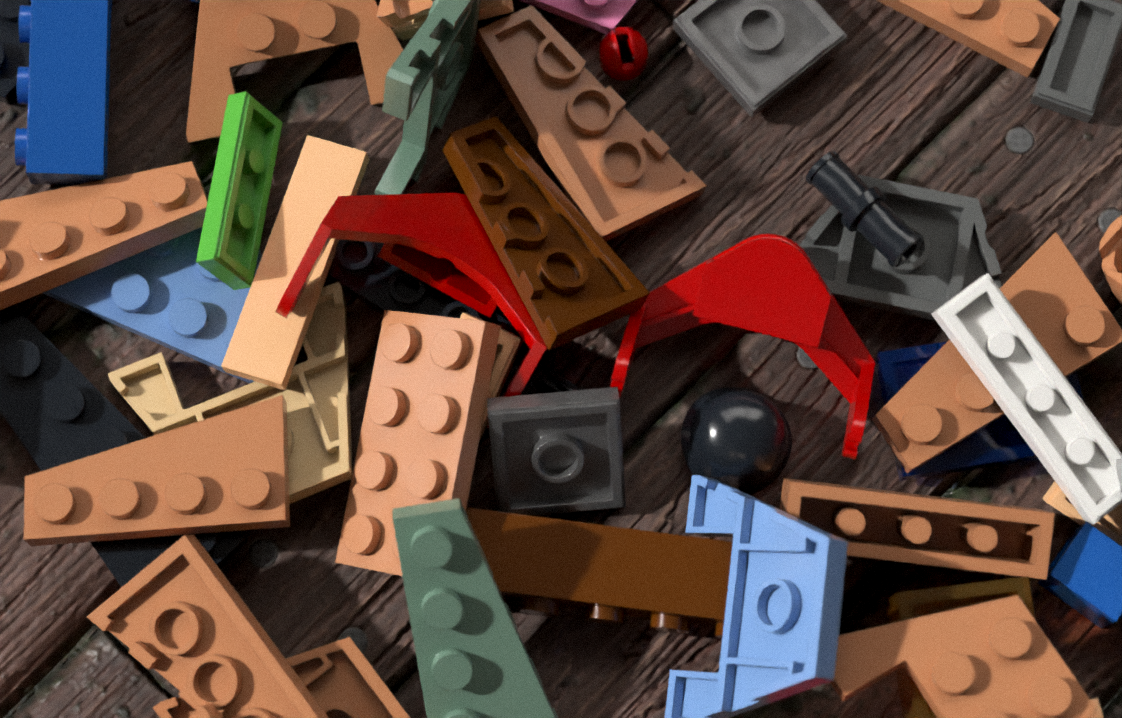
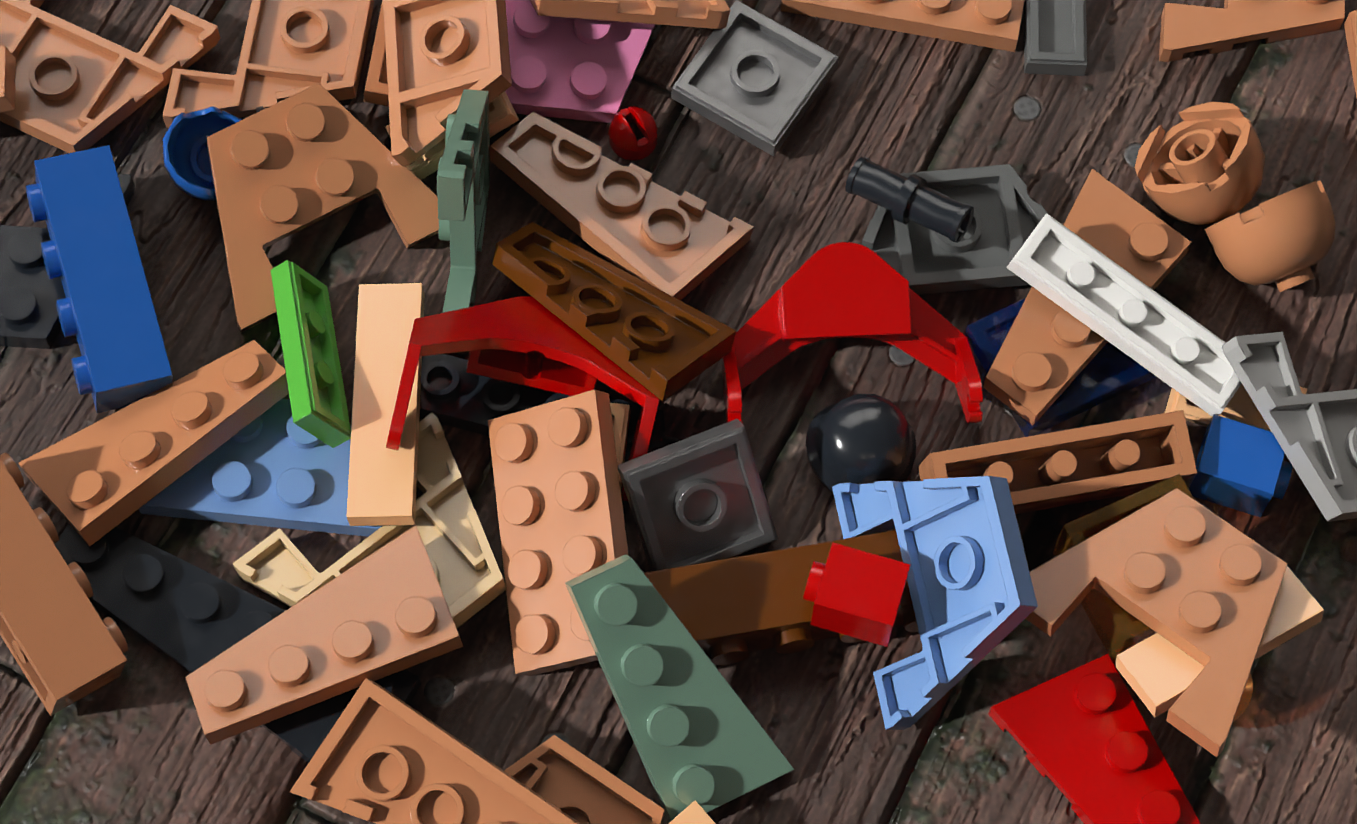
camera: 20 degrees left, 10 degrees down
(671, 599) = (856, 593): none -> red brick

